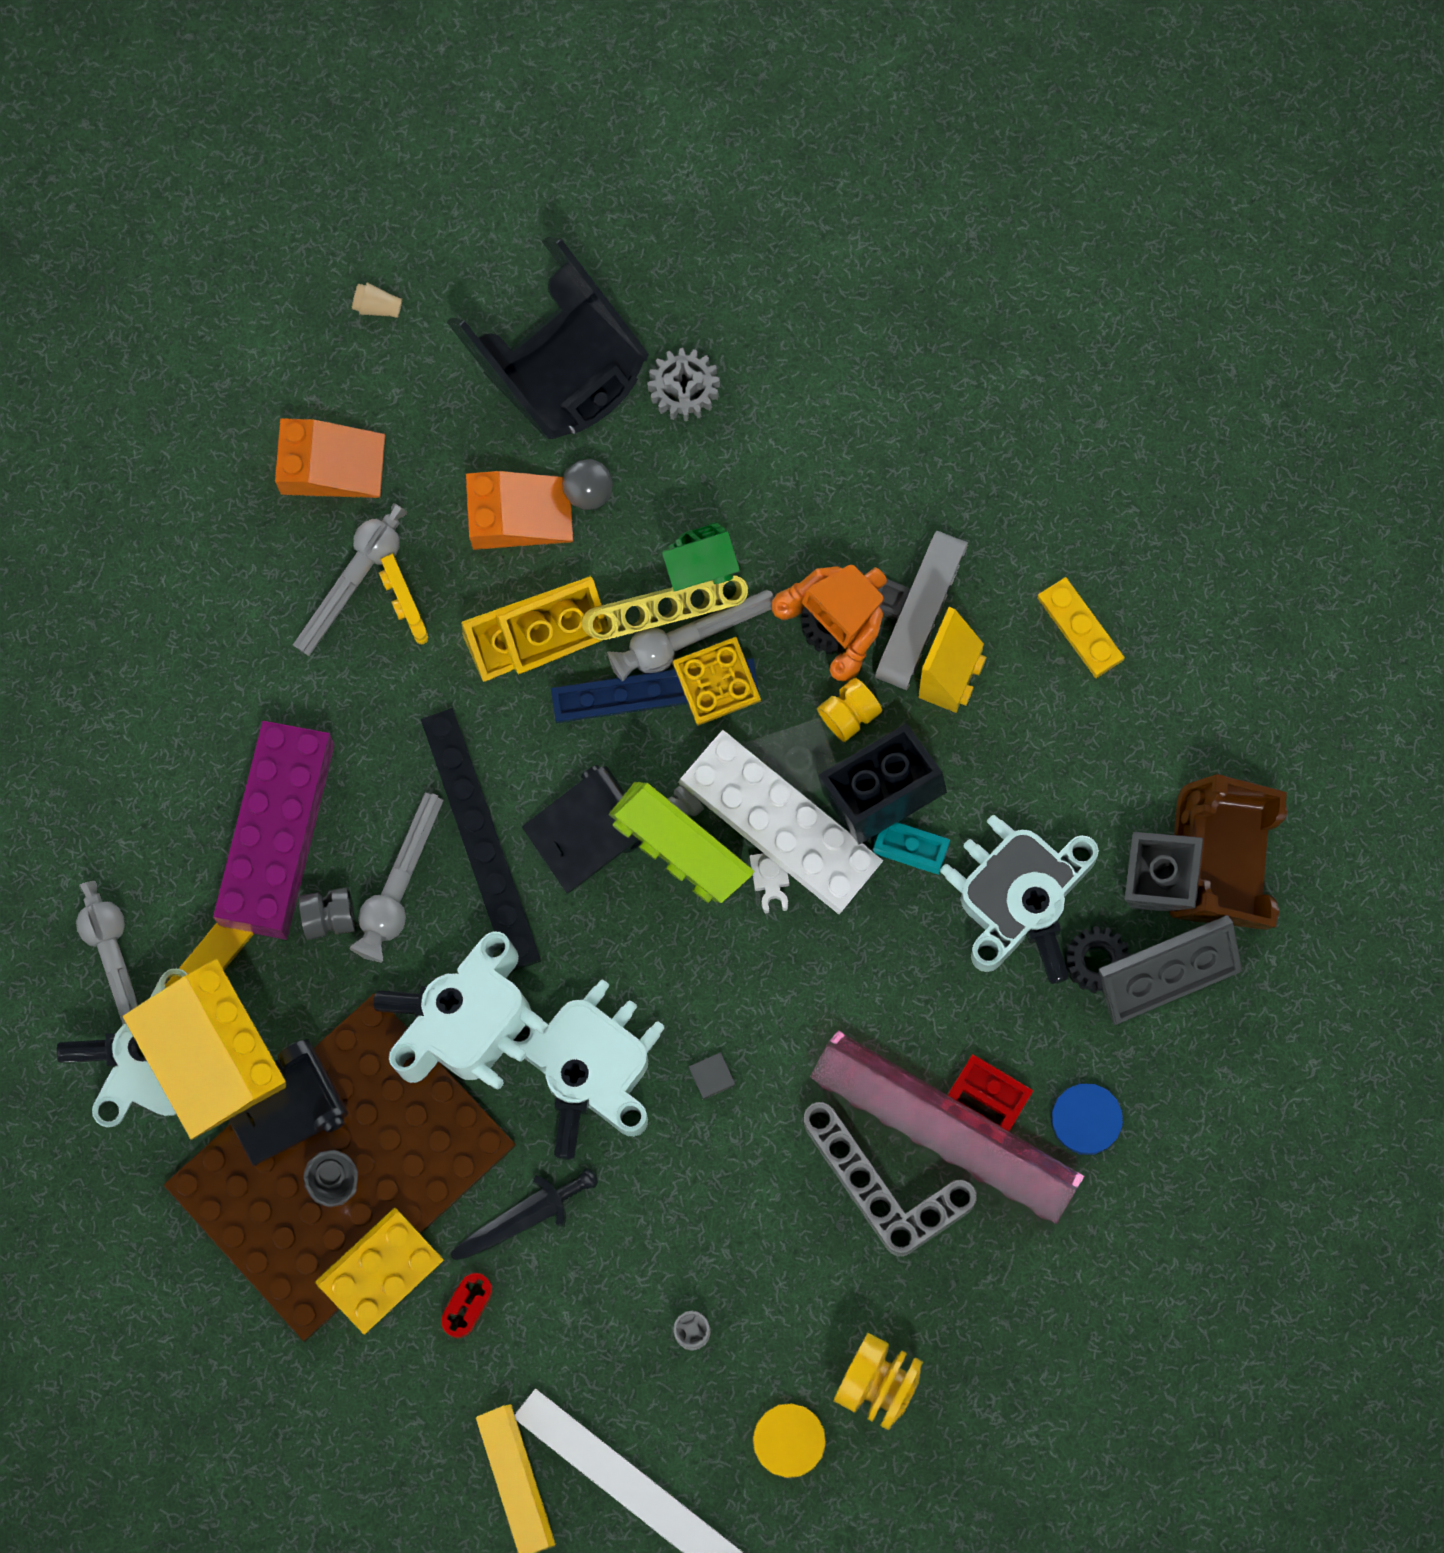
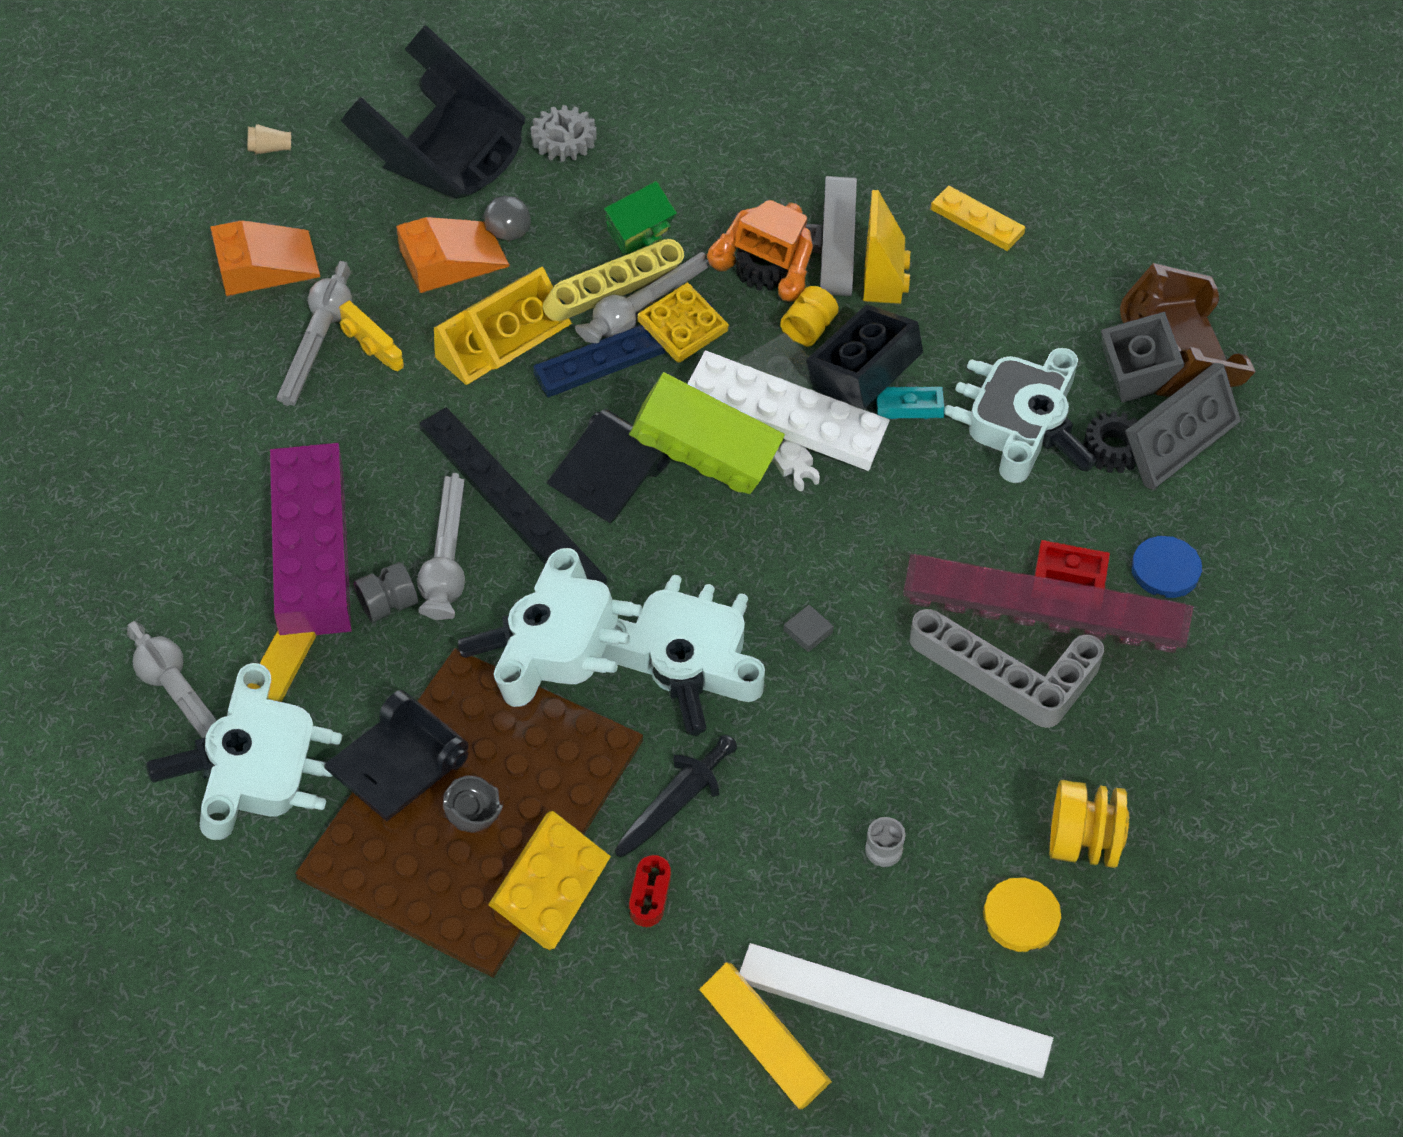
camera: 25 degrees left, 20 degrees down
(204, 1049) = (306, 720): yellow slope -> none

